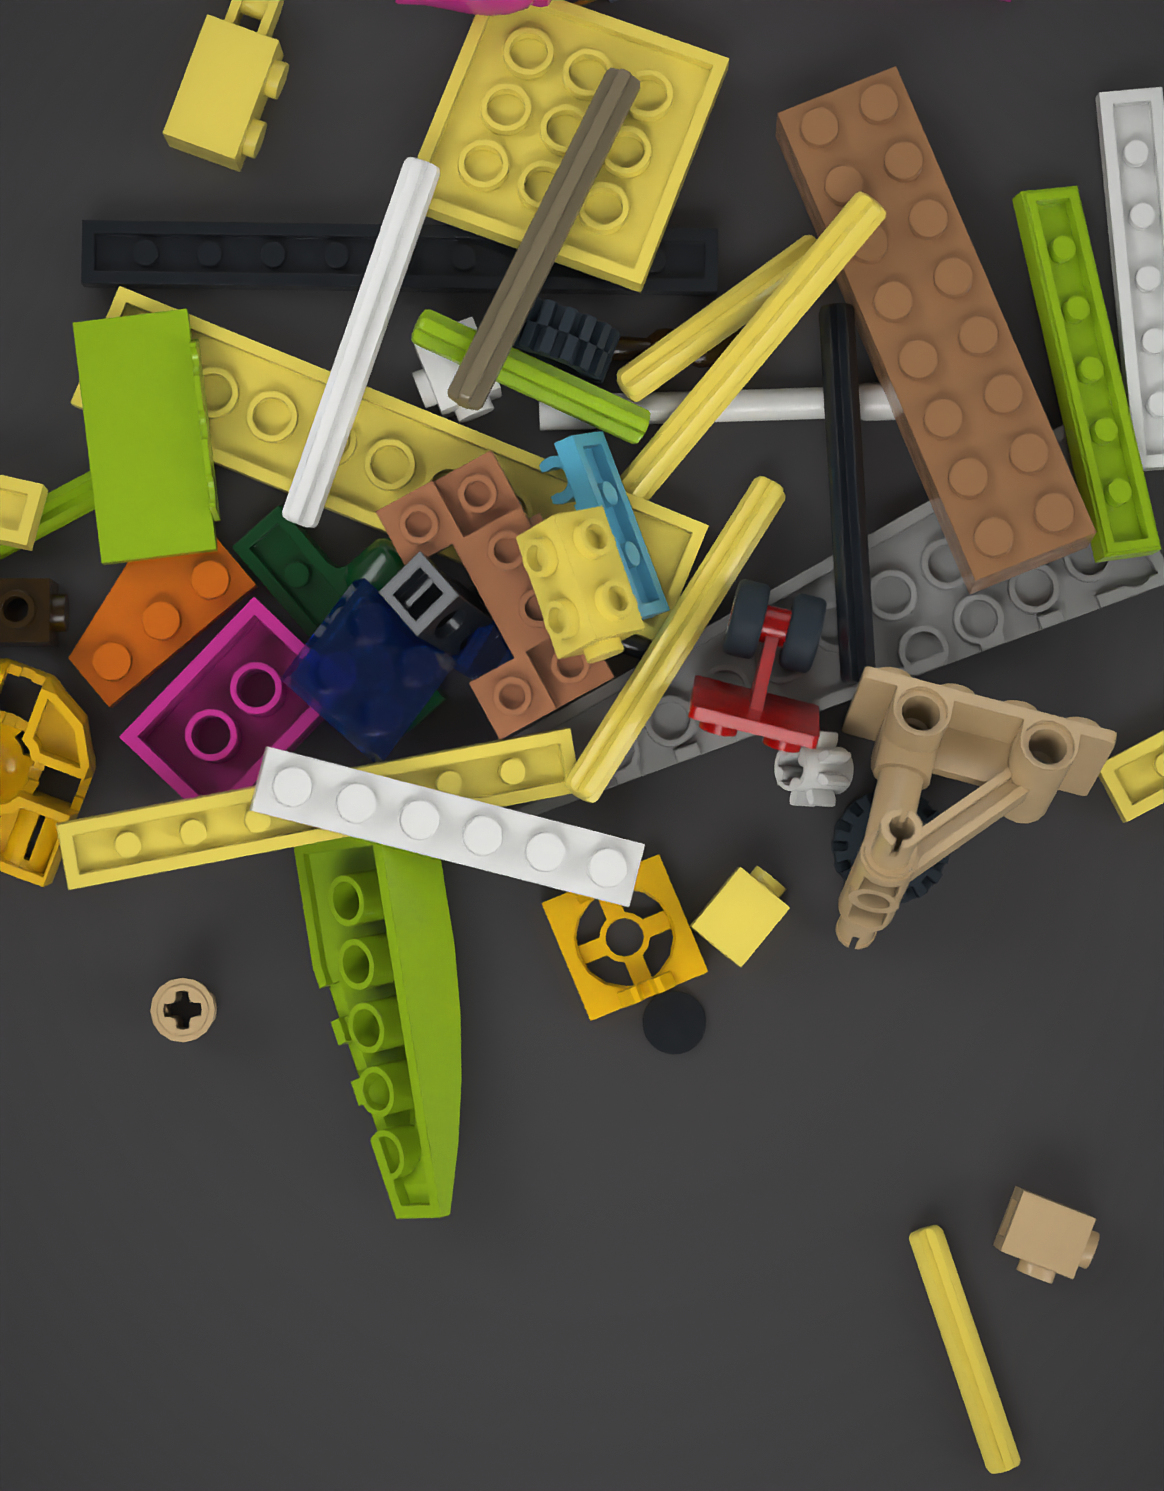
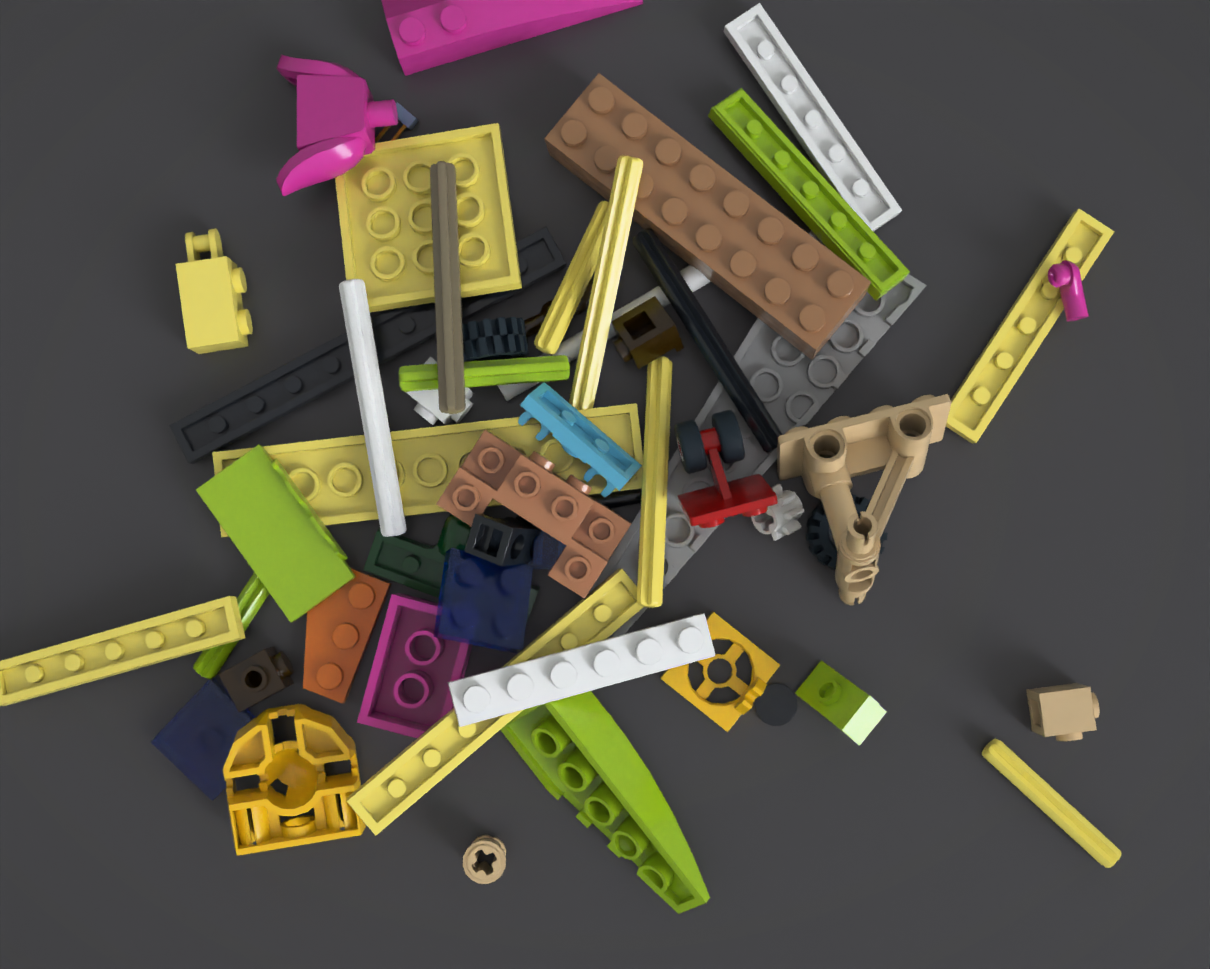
camera: 25 degrees left, 0 degrees up
(580, 584) = (582, 481): light yellow brick -> none
(742, 914) = (781, 621): light yellow brick -> none
(760, 1062) = (841, 702): none -> lime brick
(769, 440) = (645, 333): none -> dark brown brick

